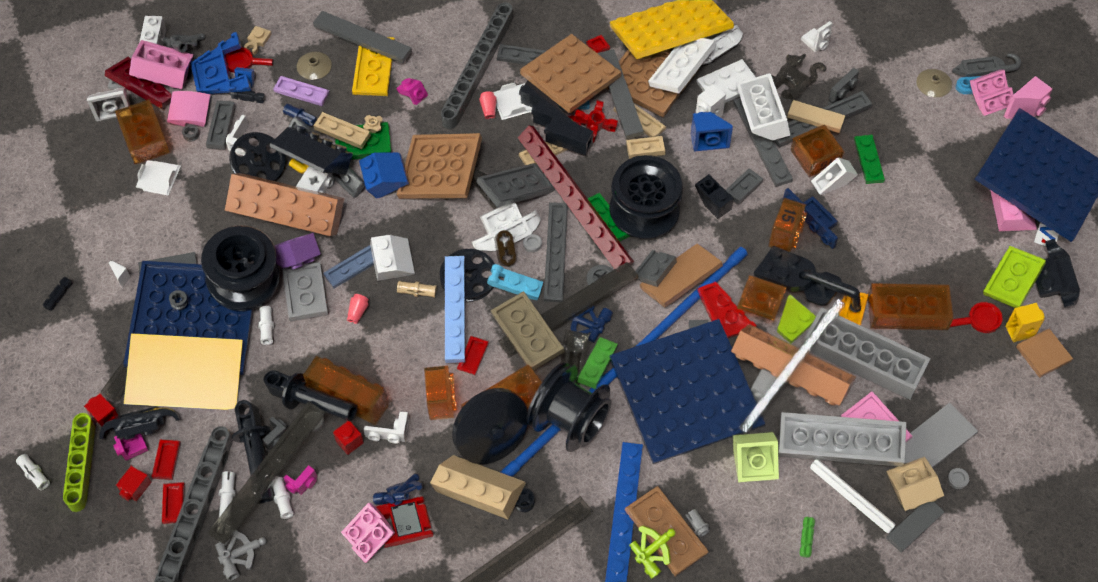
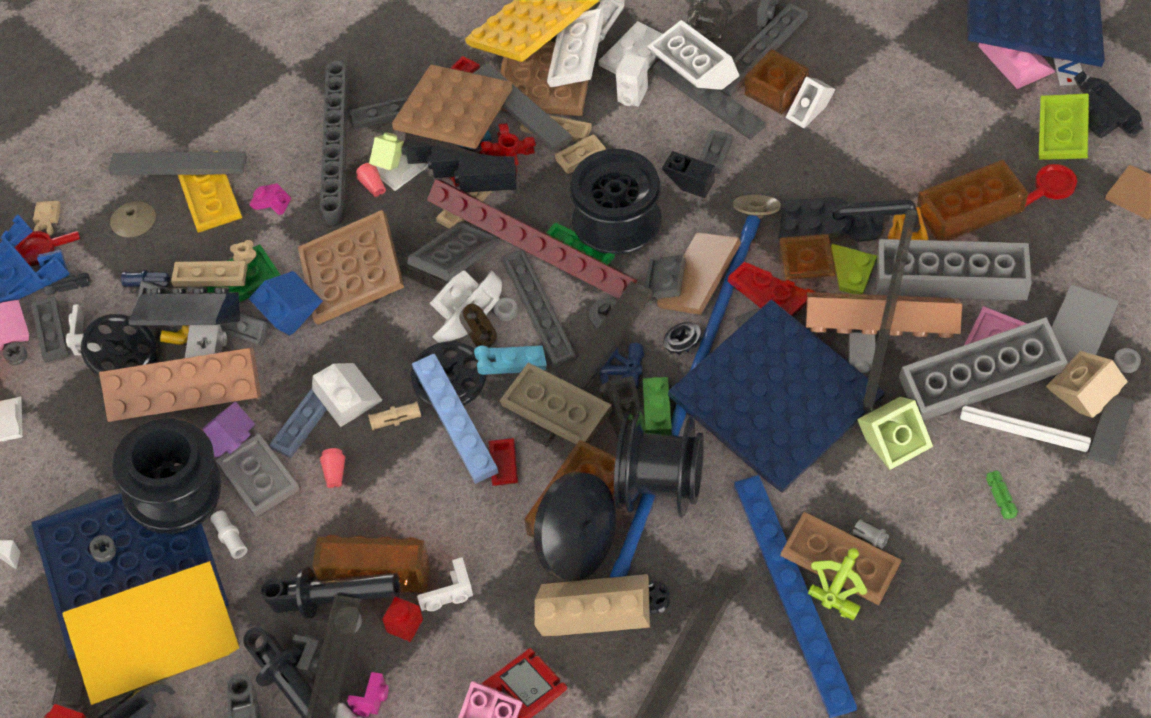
camera: 20 degrees left, 5 degrees down
(301, 91) = (132, 252): lavender tile -> none
(398, 492) = (503, 654): dark blue piece -> none
(440, 392) = (489, 517): clear orange brick -> none
(507, 89) = (386, 151): none -> yellowish green brick
(643, 314) = (677, 333): none -> black gear
(710, 132) = (647, 107): blue slope -> none
(750, 241) = (756, 205): none -> dark tan dish
(788, 225) = (791, 169): clear orange brick -> none
(816, 116) = (755, 46): tan tile -> none
(817, 218) = (811, 151): dark blue bracket -> none
(869, 159) = (836, 70): green plate -> none
(1025, 322) = (1103, 166): yellow brick -> none

